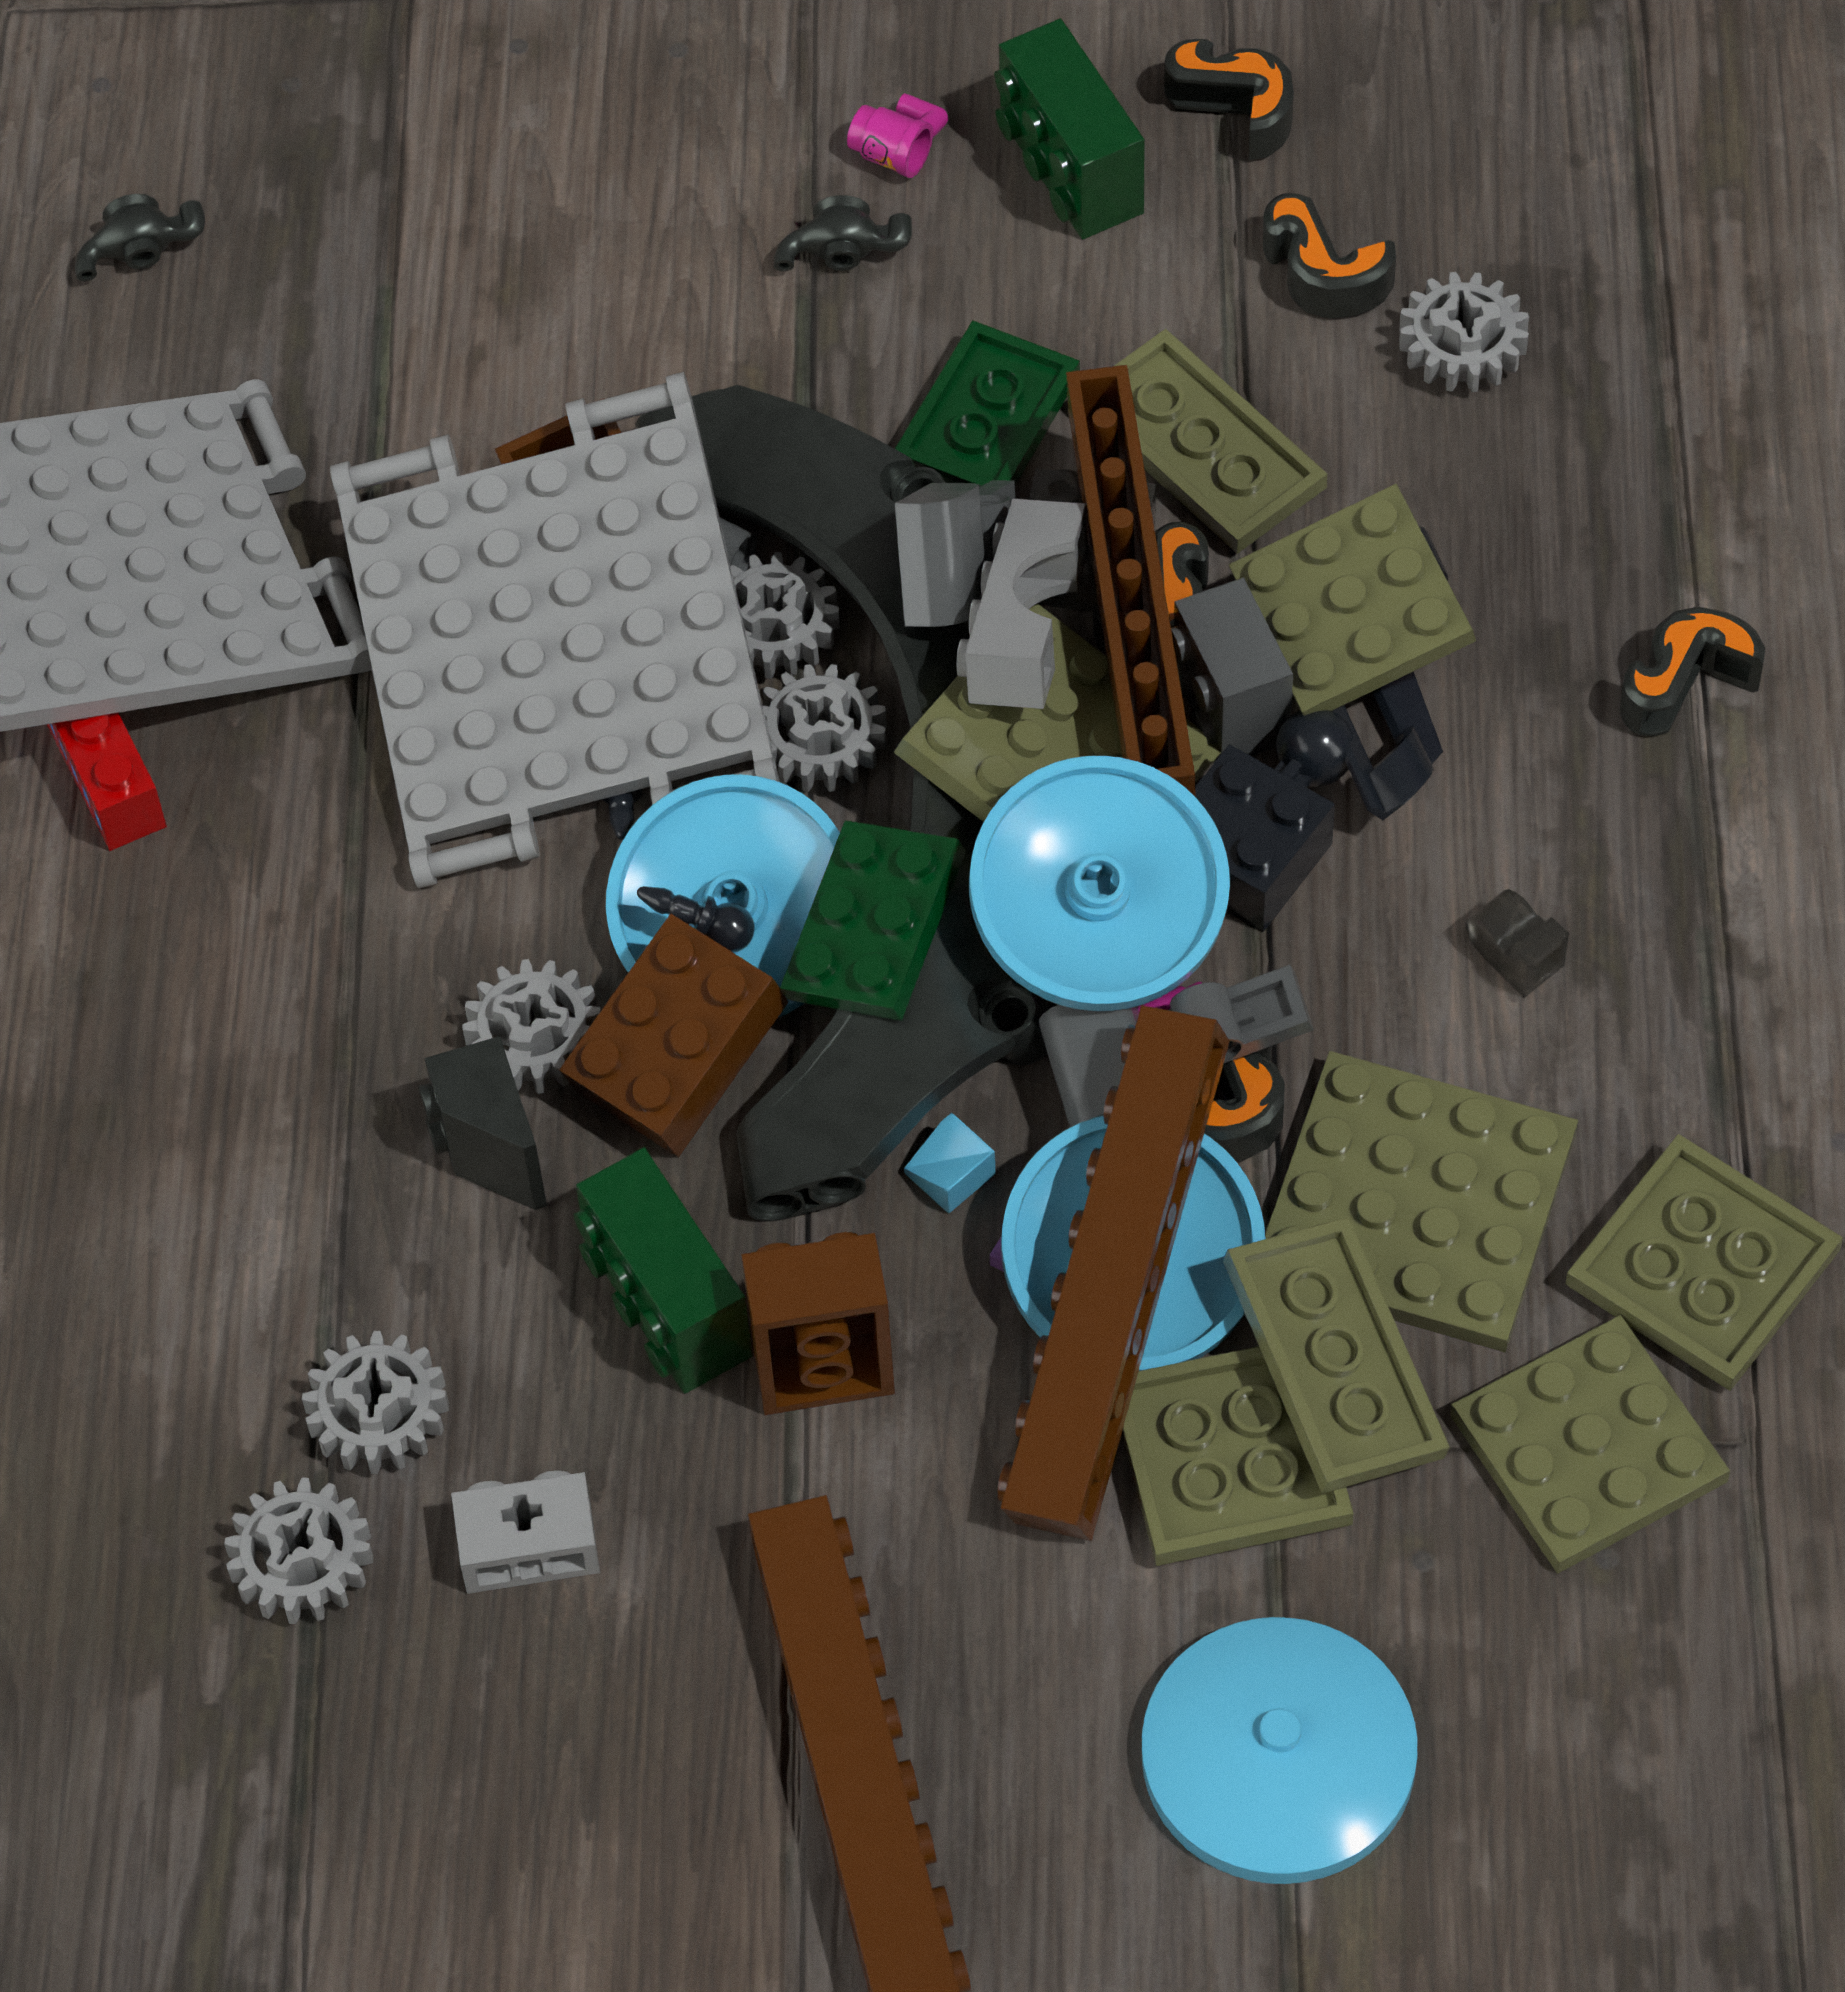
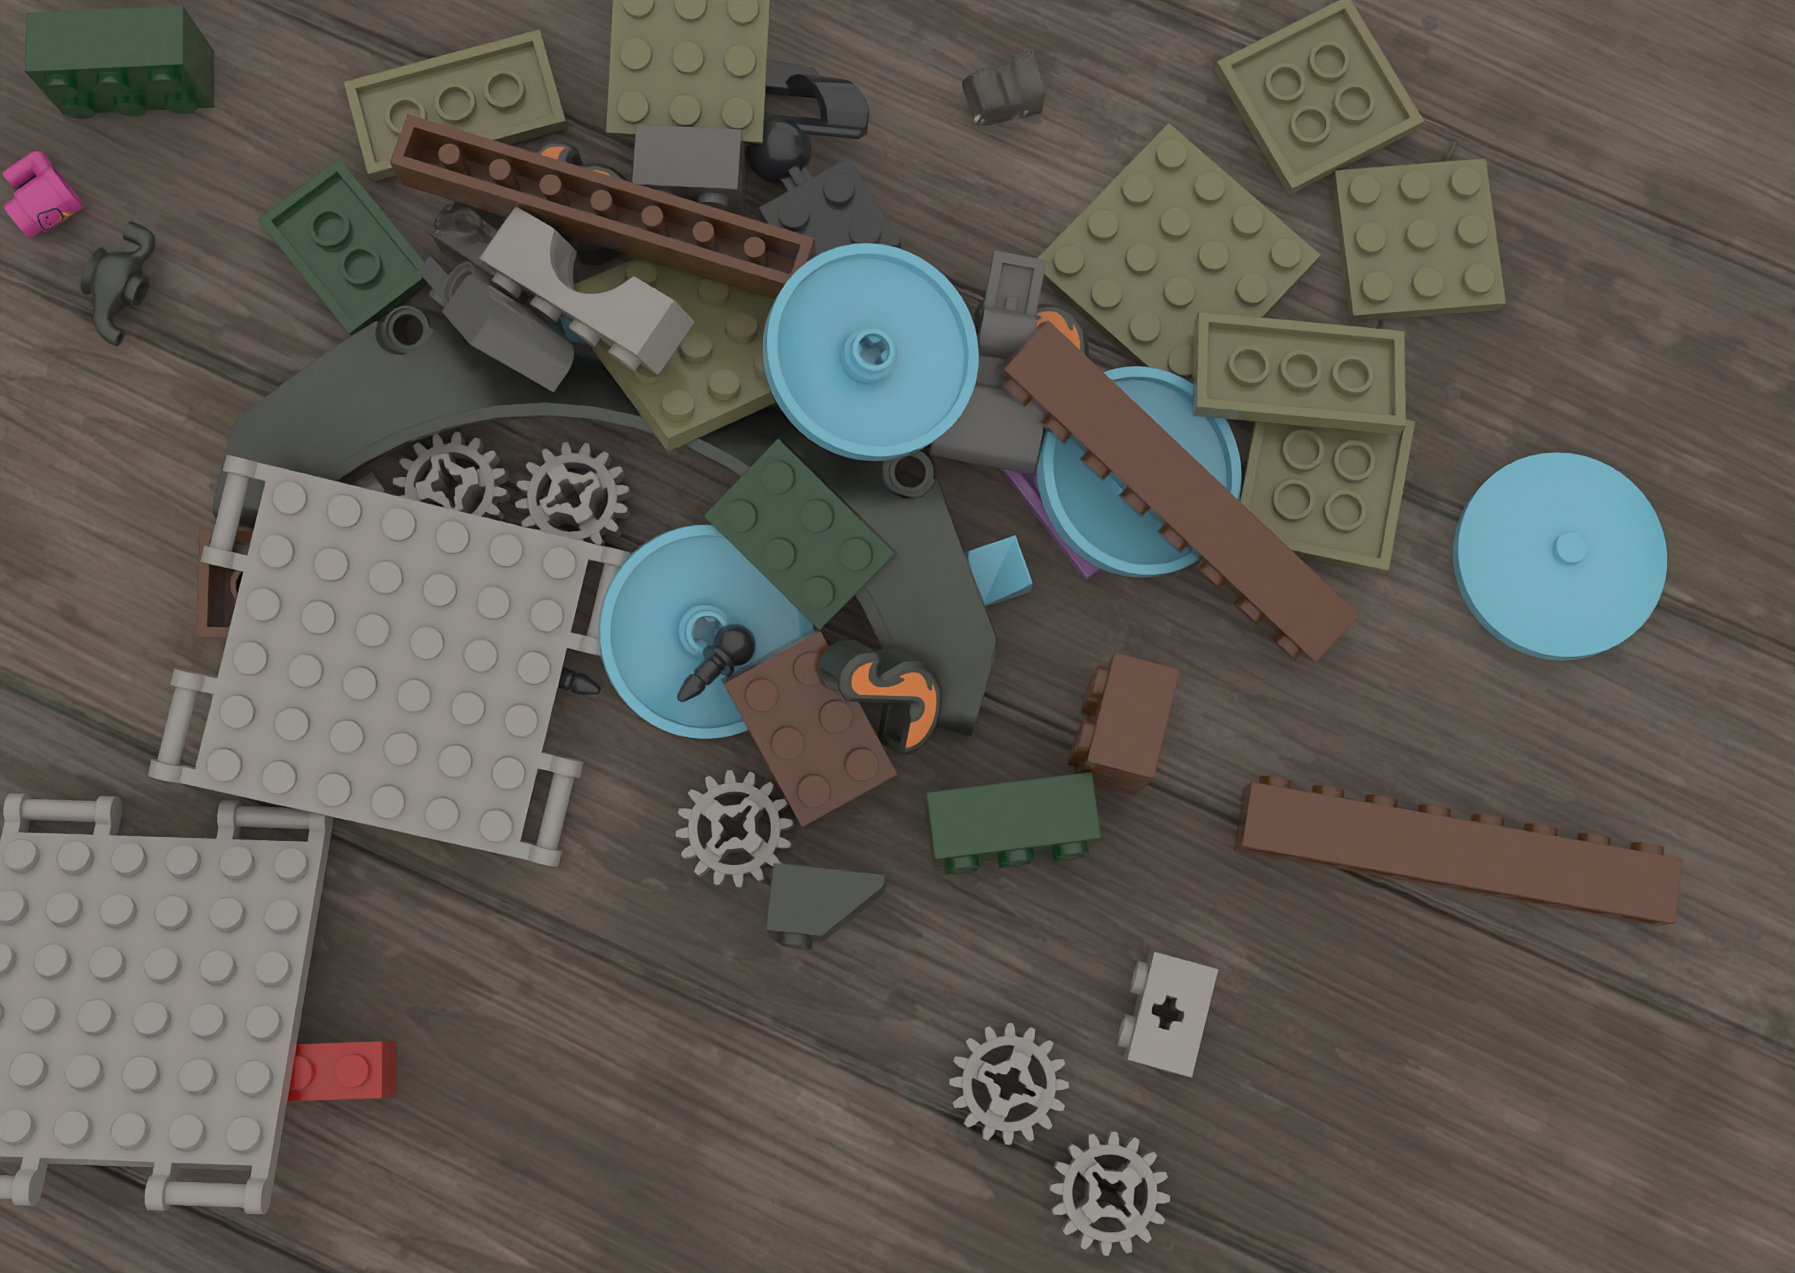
camera: 70 degrees left, 20 degrees up
(752, 1059) = (888, 677): none -> pearl dark grey animal

